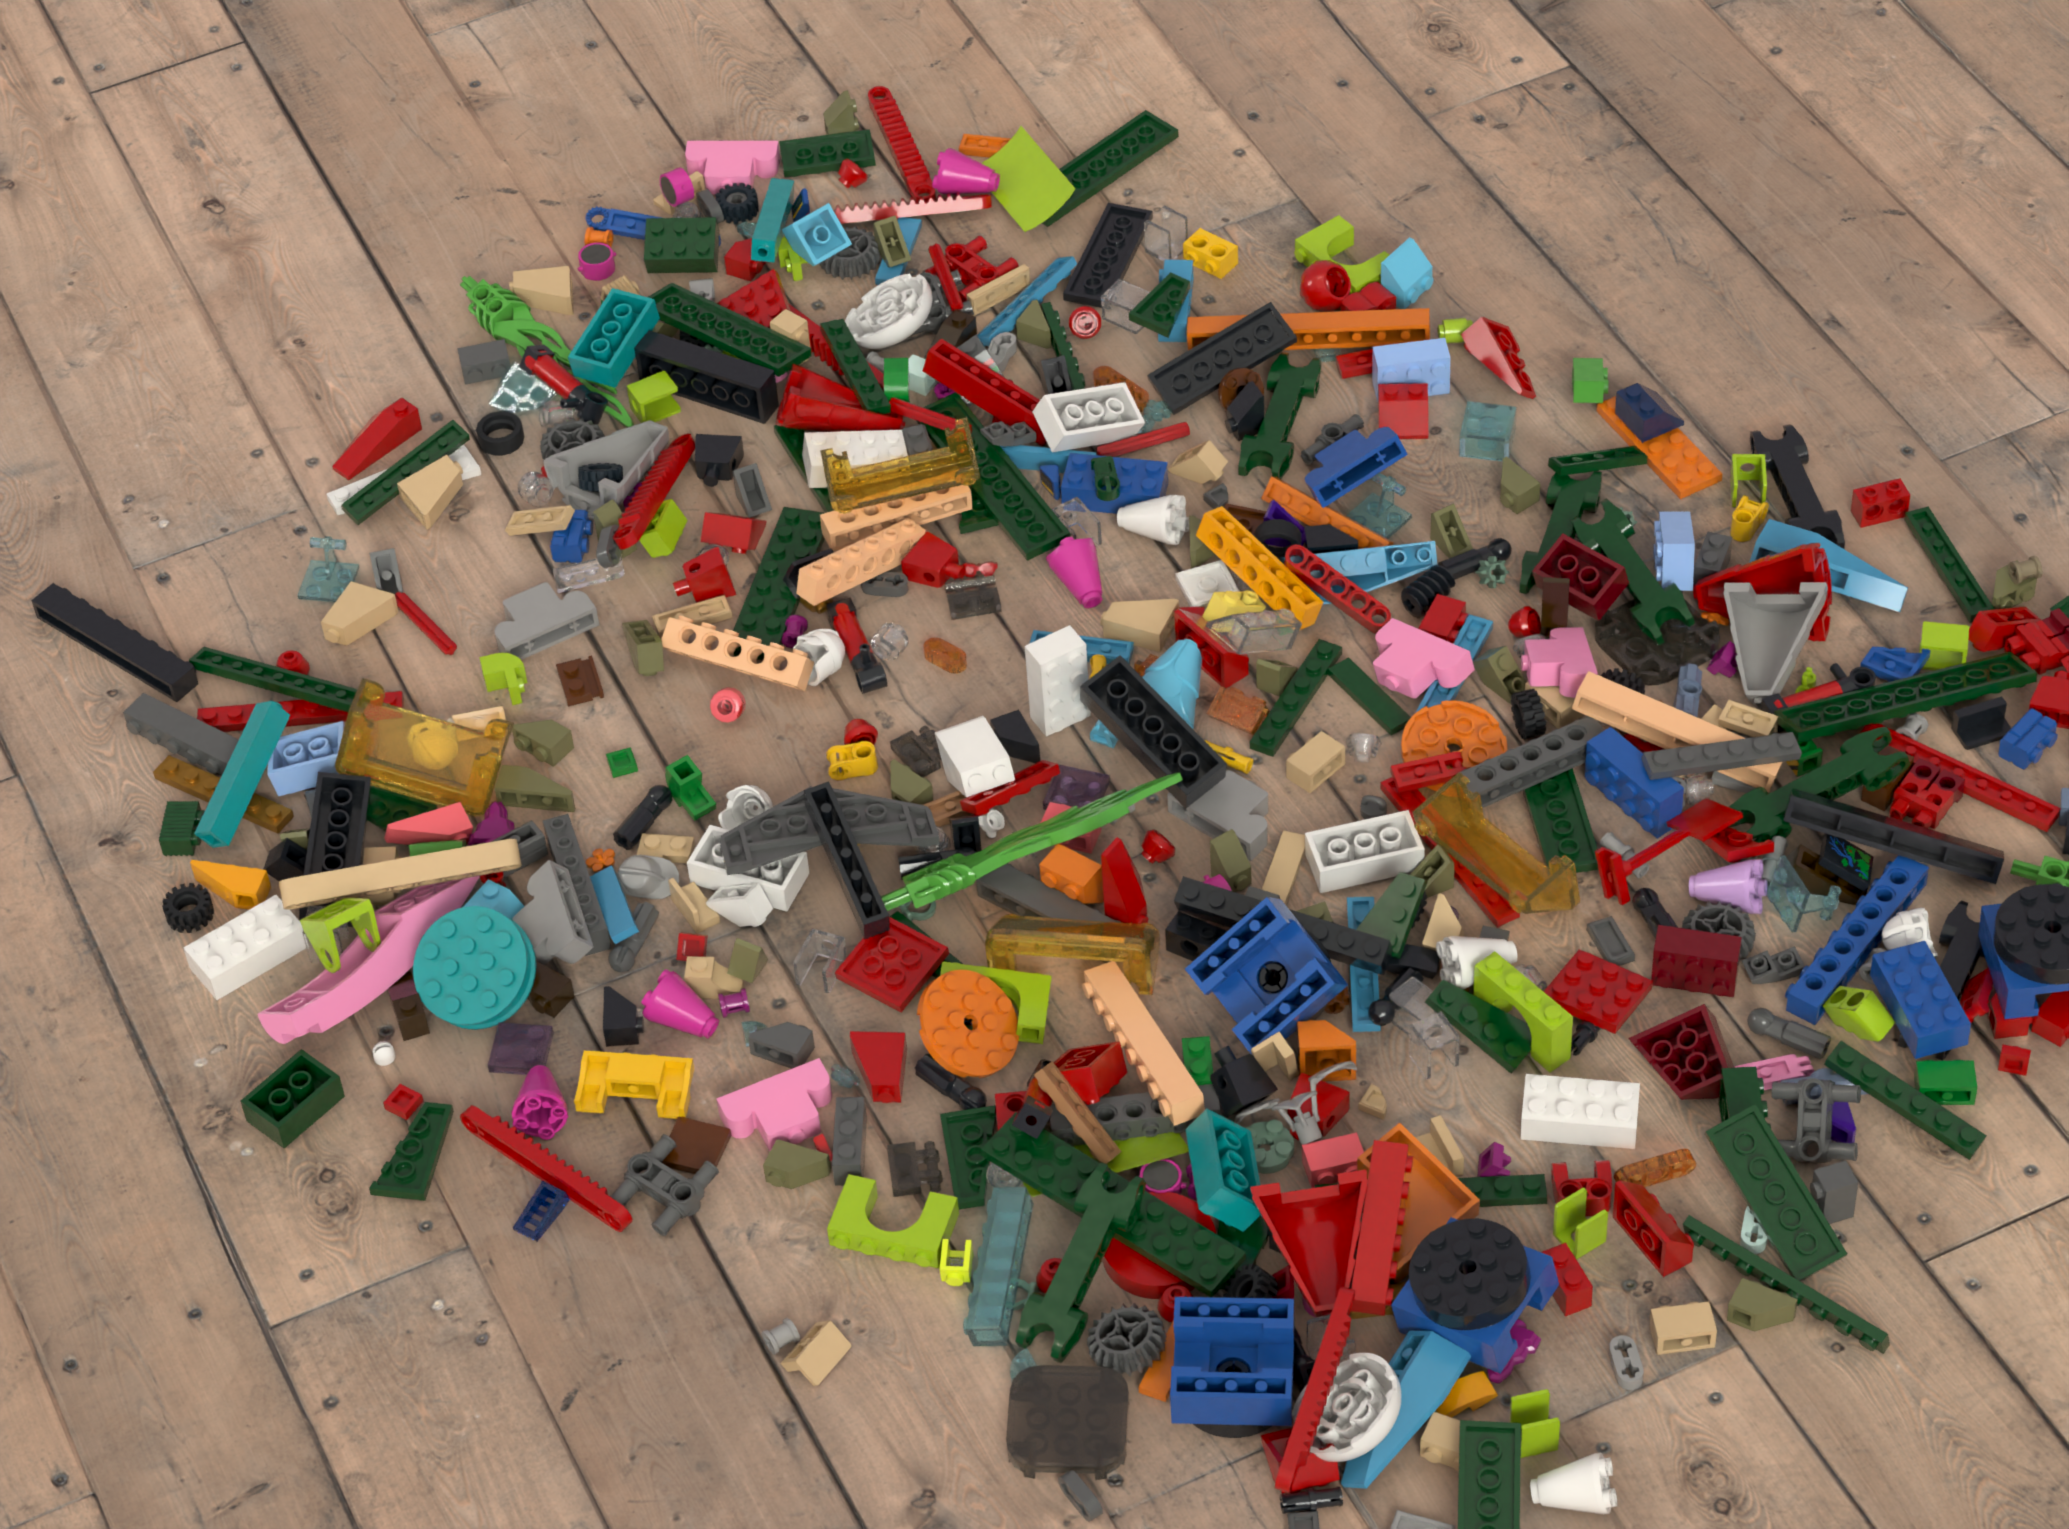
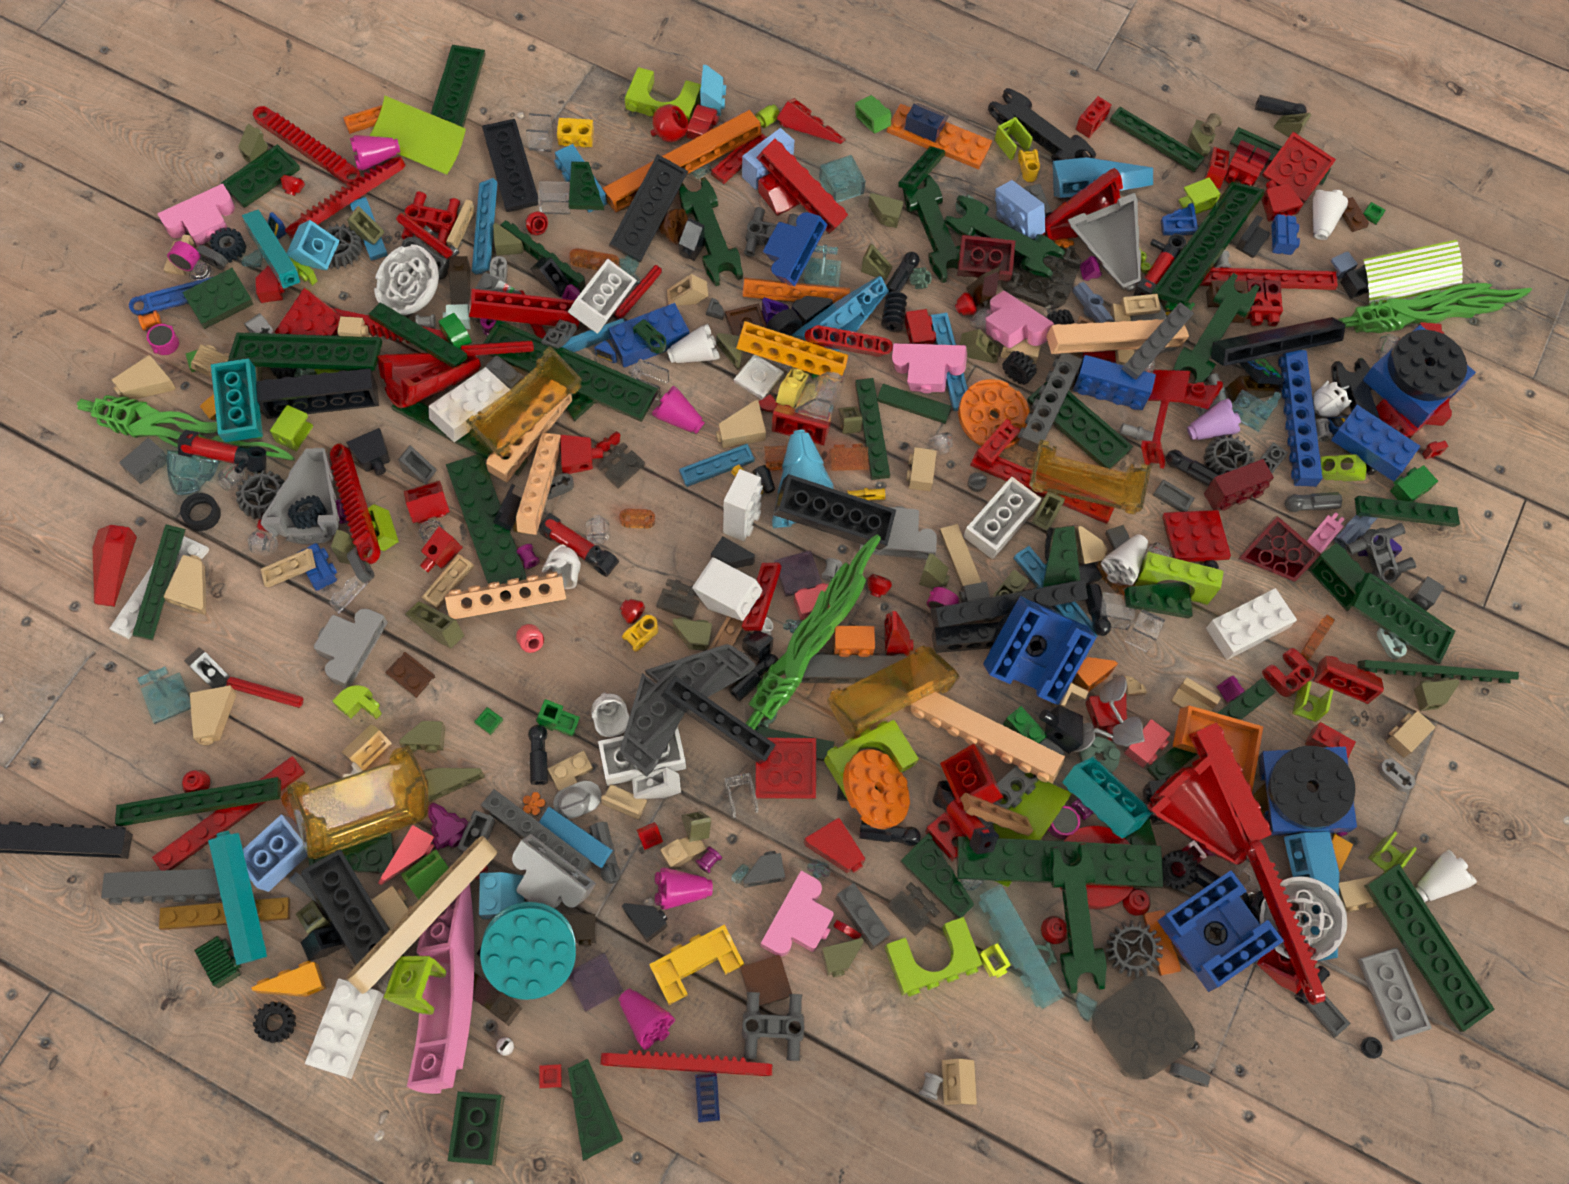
camera: 45 degrees left, 20 degrees up
(1422, 410) = (801, 184): none -> red brick

